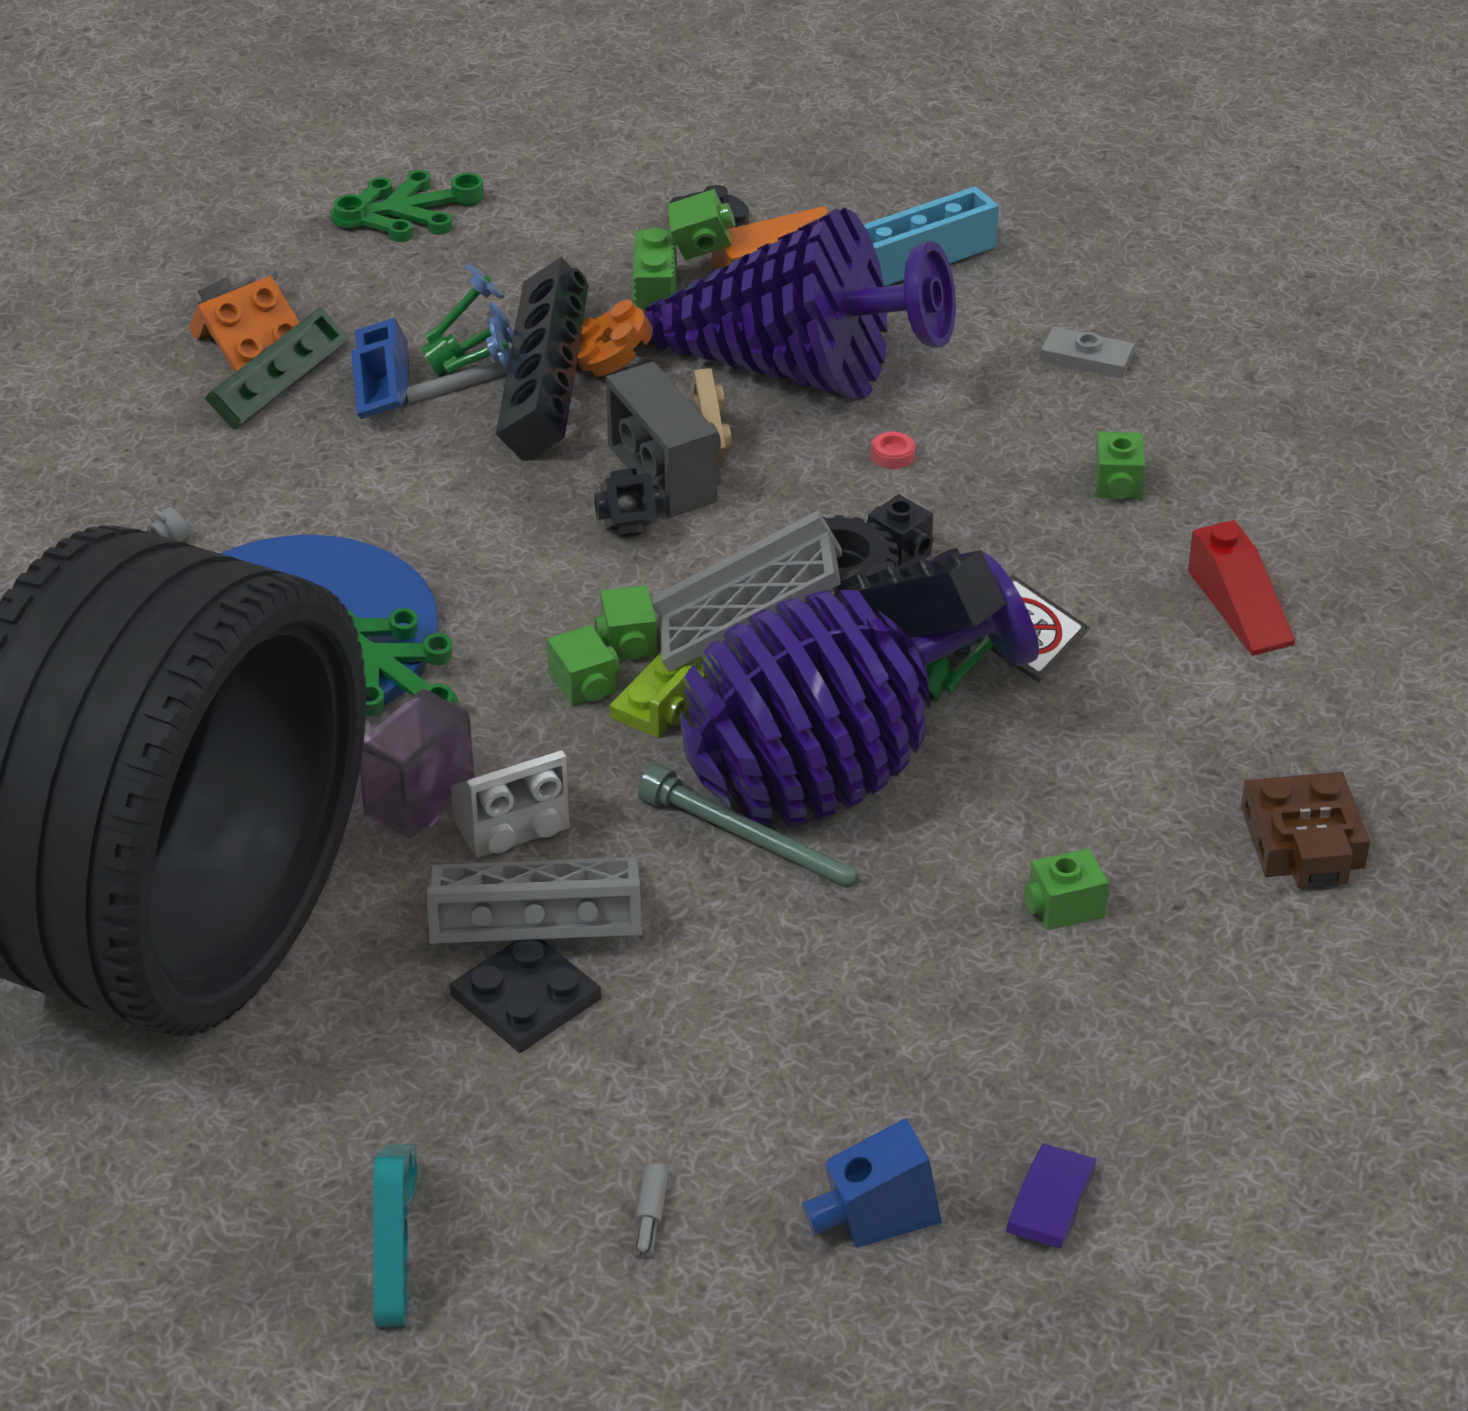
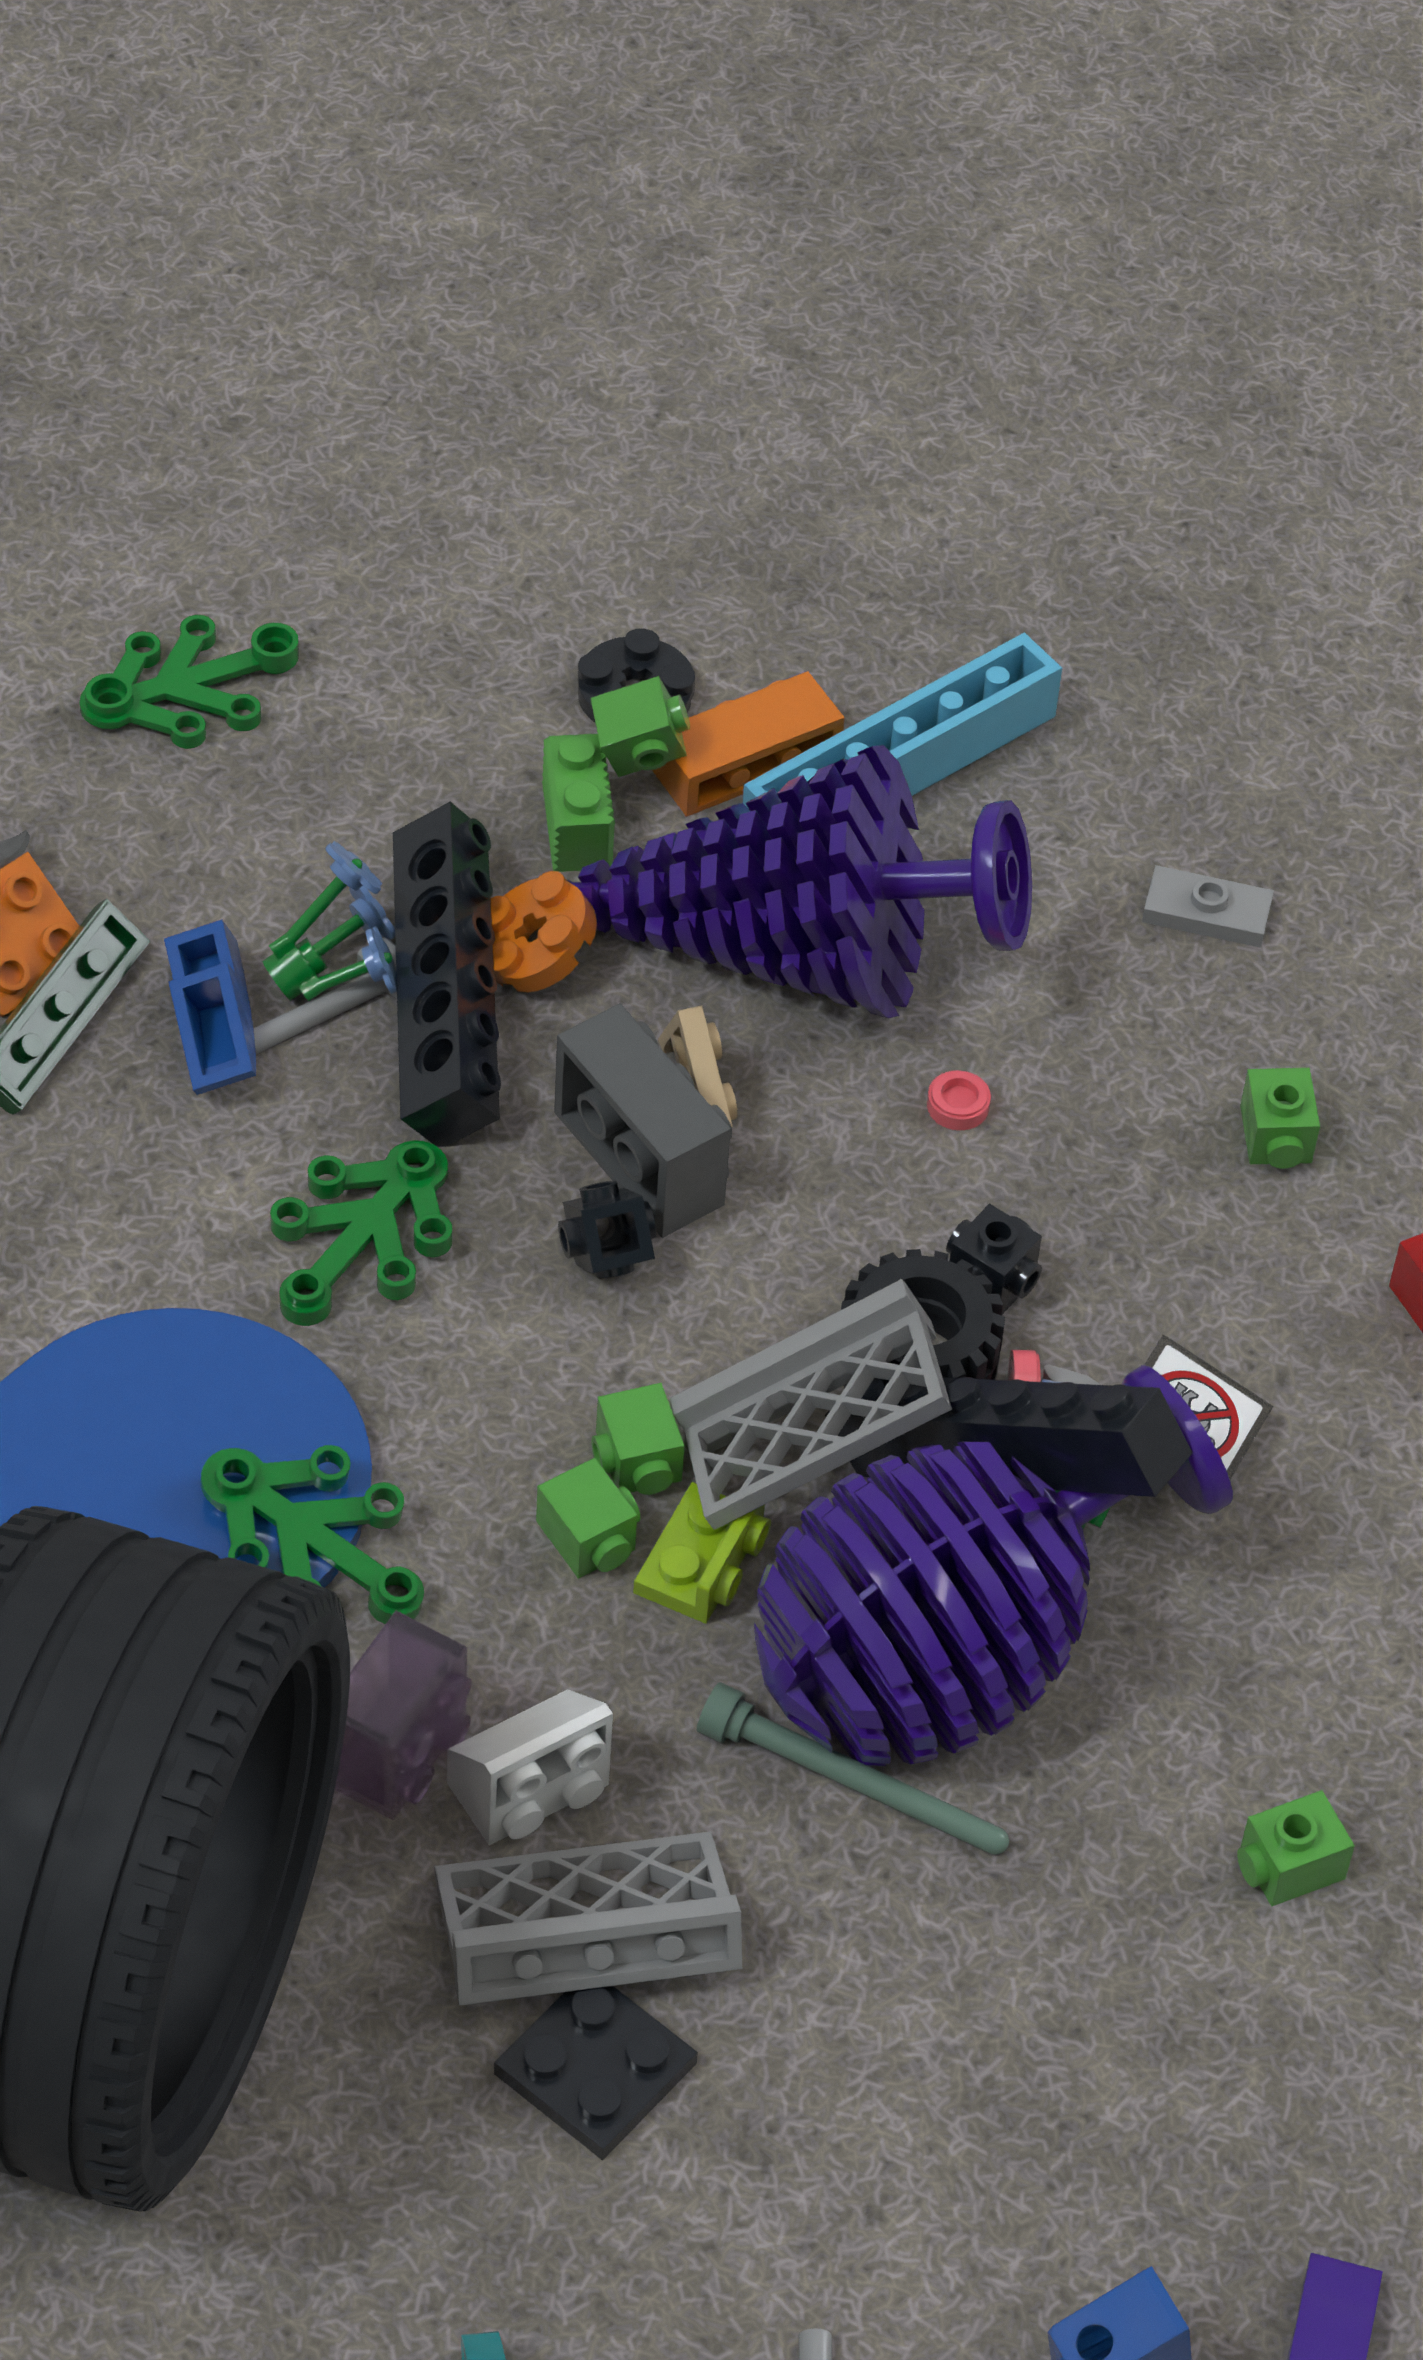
camera: 10 degrees left, 10 degrees up
(499, 469) = (363, 1222): none -> green plant

